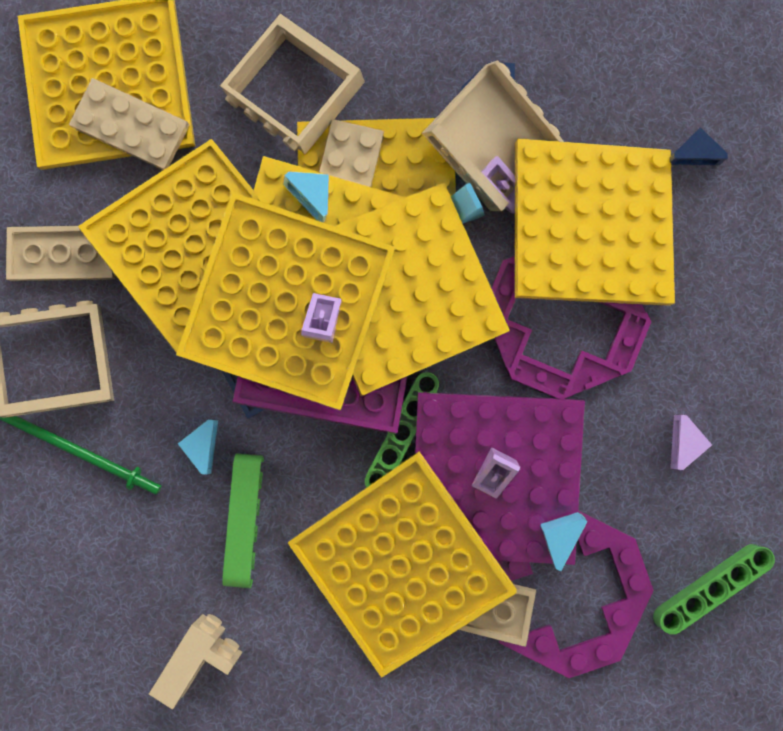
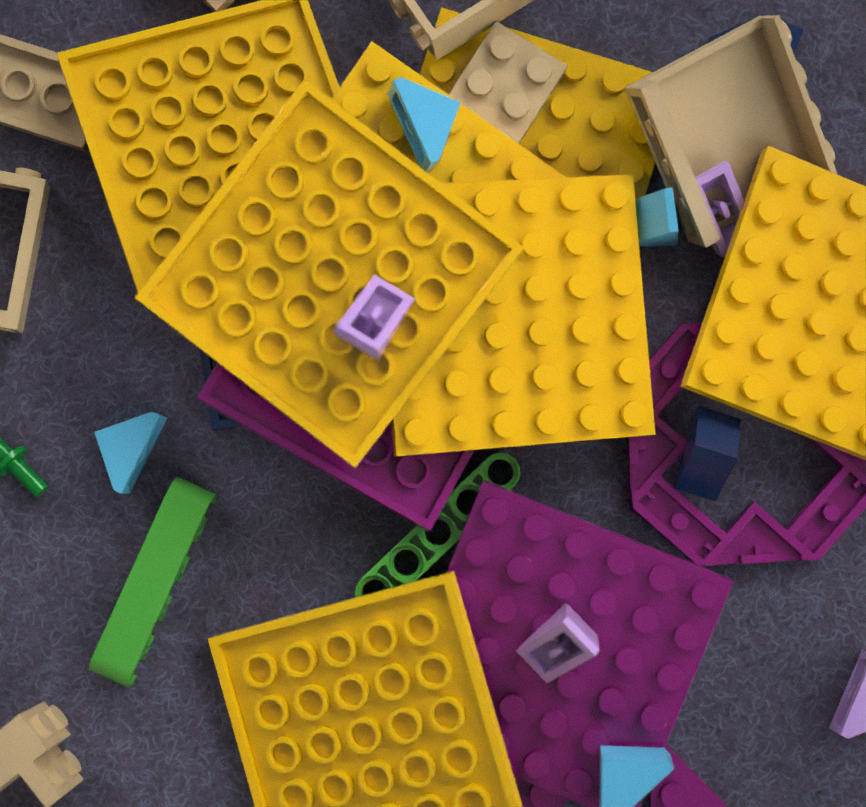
camera: 20 degrees right, 0 degrees up
(545, 331) = (708, 454): none -> dark blue slope

